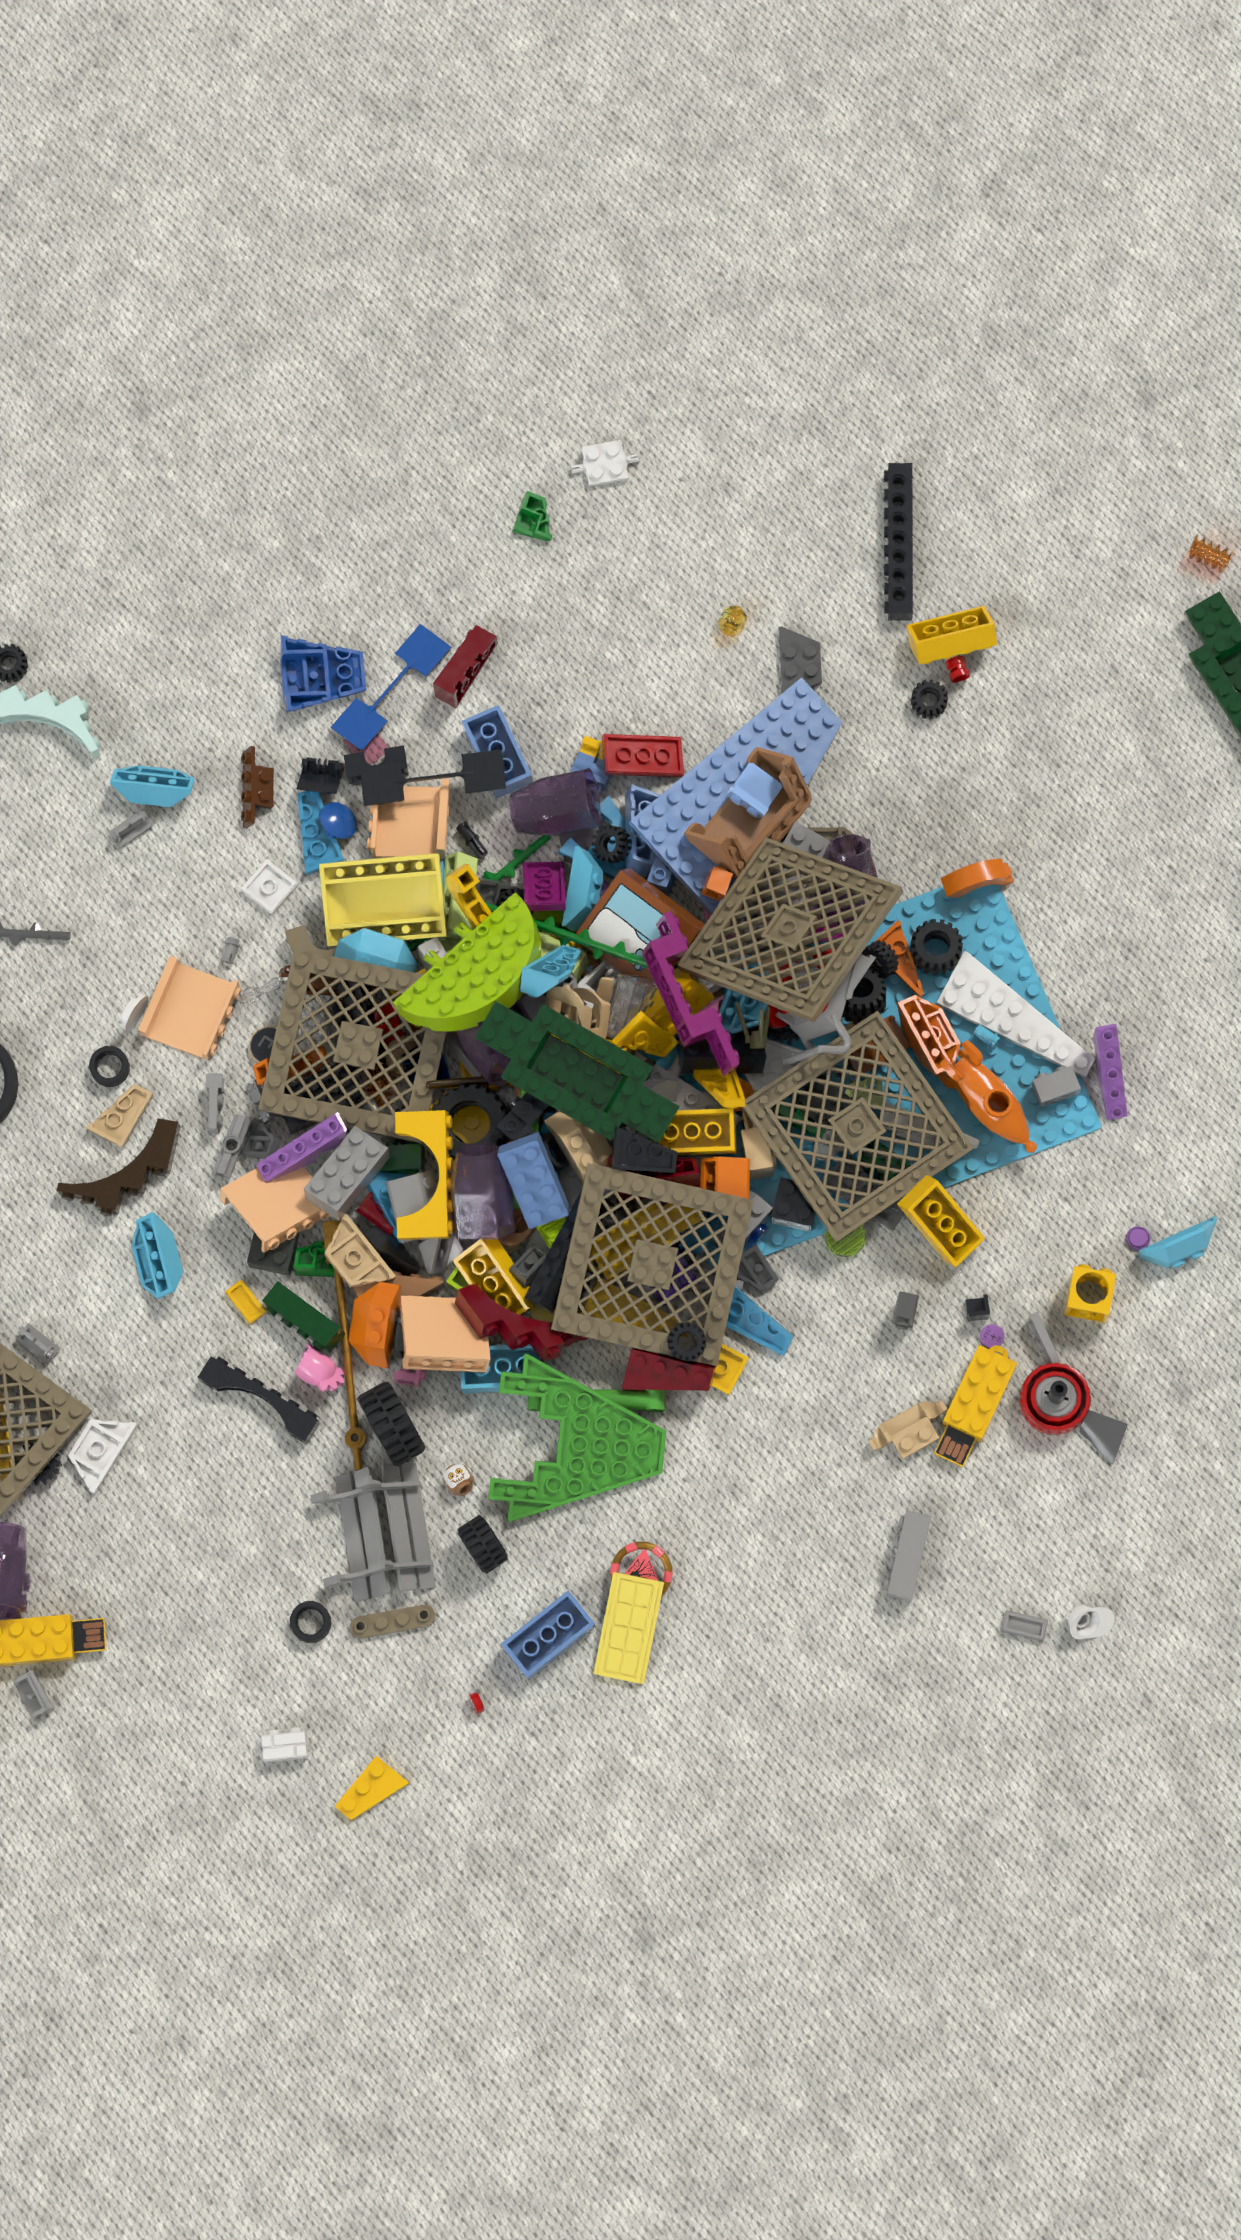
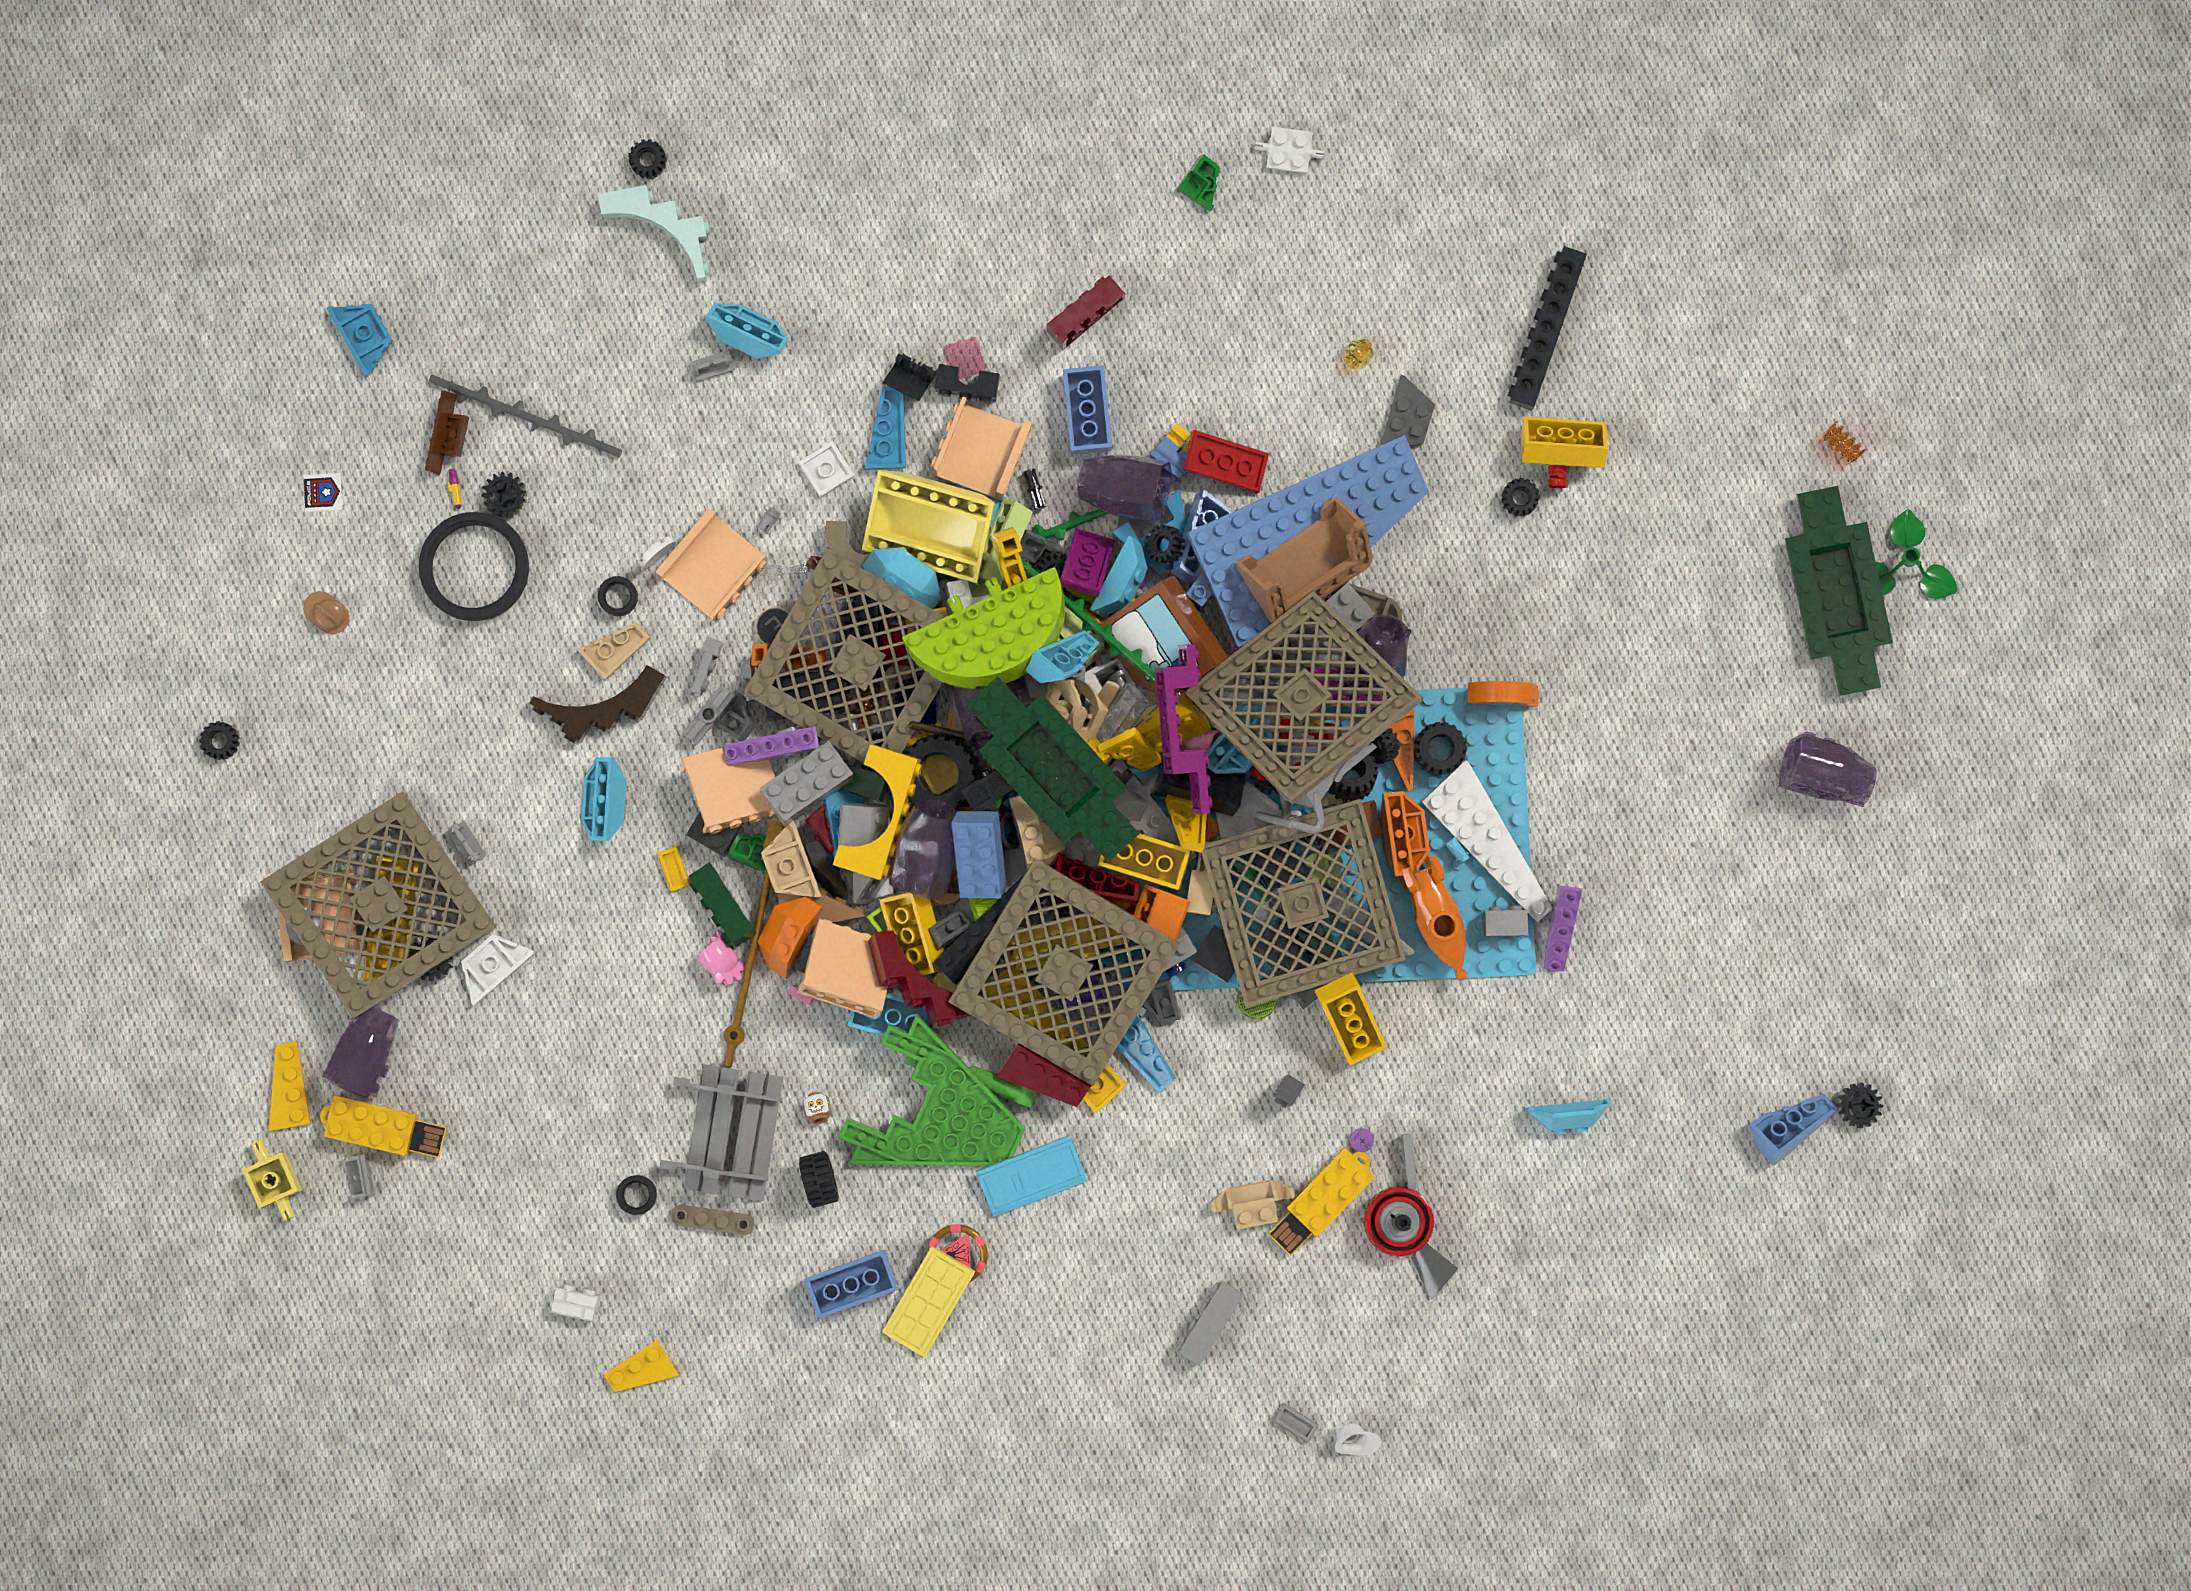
camera: 10 degrees right, 10 degrees up
(223, 1378) = (684, 1001): black arch -> none
(257, 787) = (846, 365): reddish brown bracket -> none
(318, 673) = (942, 272): blue wedge -> none
(338, 820) = (912, 427): blue dish -> none
(362, 722) = (1047, 283): blue hinge -> none
(385, 781) = (968, 407): black hinge -> none
(391, 1423) = (770, 1038): black tyre -> none
(476, 1702) = (765, 1323): red tile -> none
(641, 1154) = (1088, 866): black wing -> none
(673, 1341) = (1062, 1047): black tyre -> none
(687, 1475) = (1031, 1176): none -> medium azure piece
(717, 883) = (1251, 621): orange brick -> none
(754, 790) = (1318, 540): light blue bracket -> none
(757, 1038) = (1237, 787): olive plant -> none
(977, 1308) = (1357, 1109): black panel -> none
(1076, 1307) = (1448, 1136): yellow brick -> none
(1138, 1238) = (1531, 1092): medium lavender piece -> none

